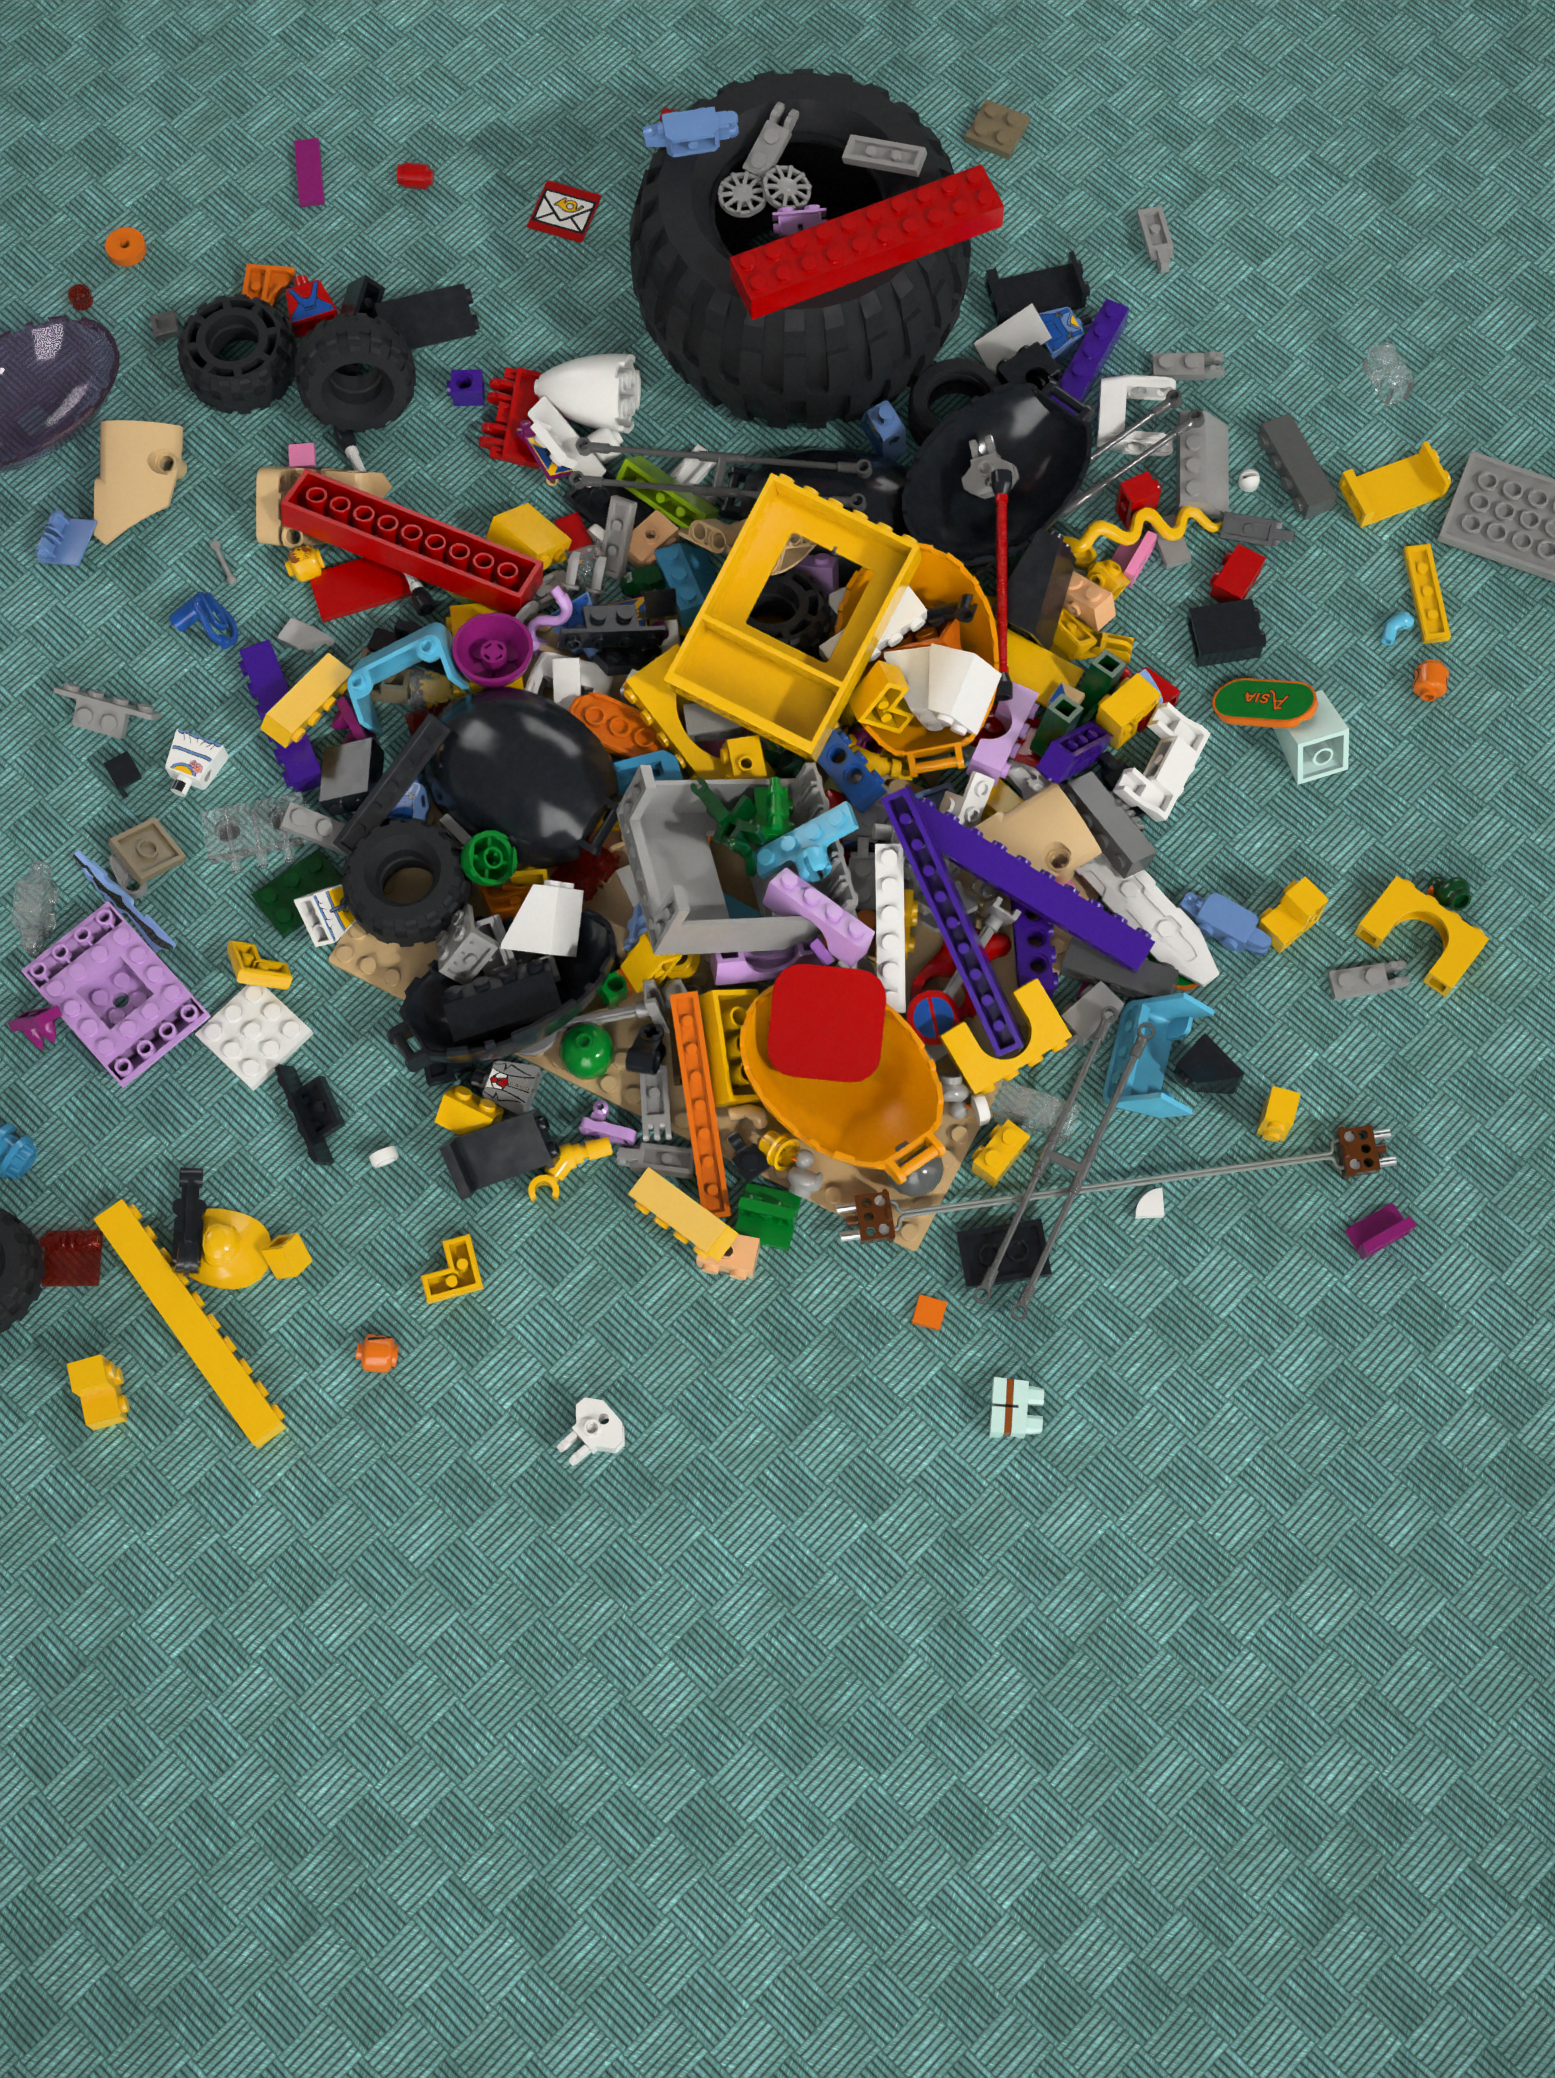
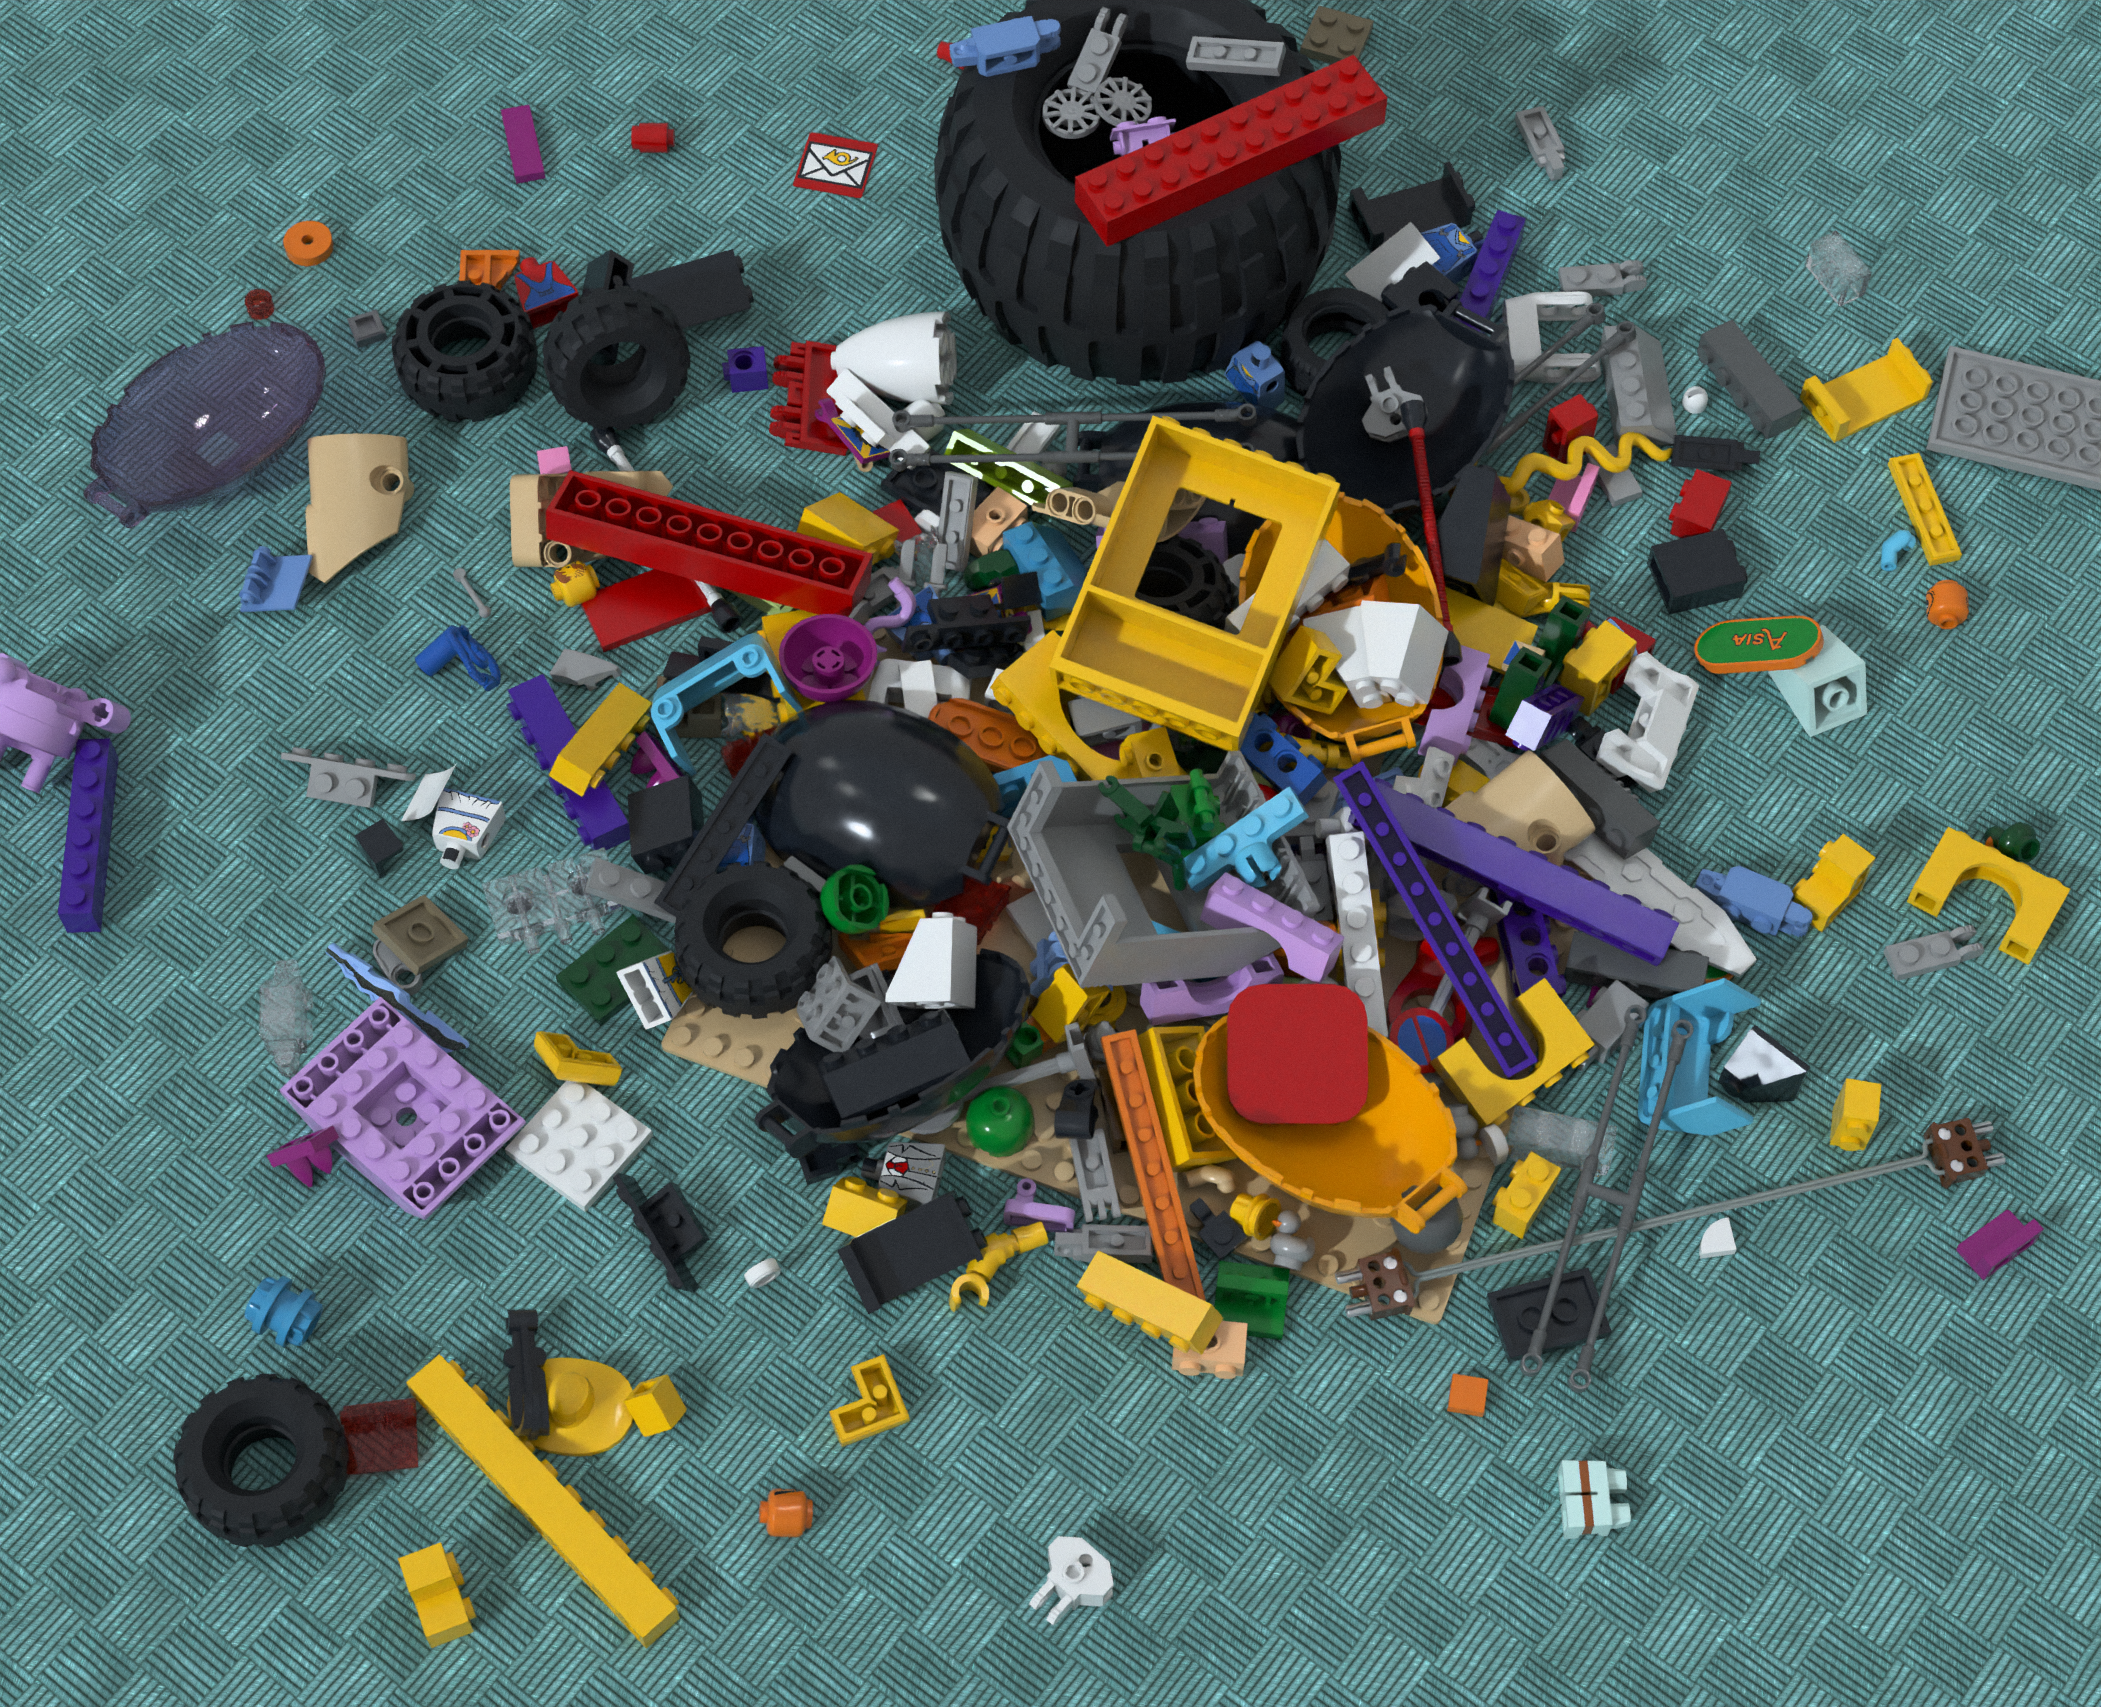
camera: 10 degrees left, 10 degrees down
(166, 732) = (427, 795): none -> white sticker
(821, 952) = (1279, 970): medium lavender tile -> none

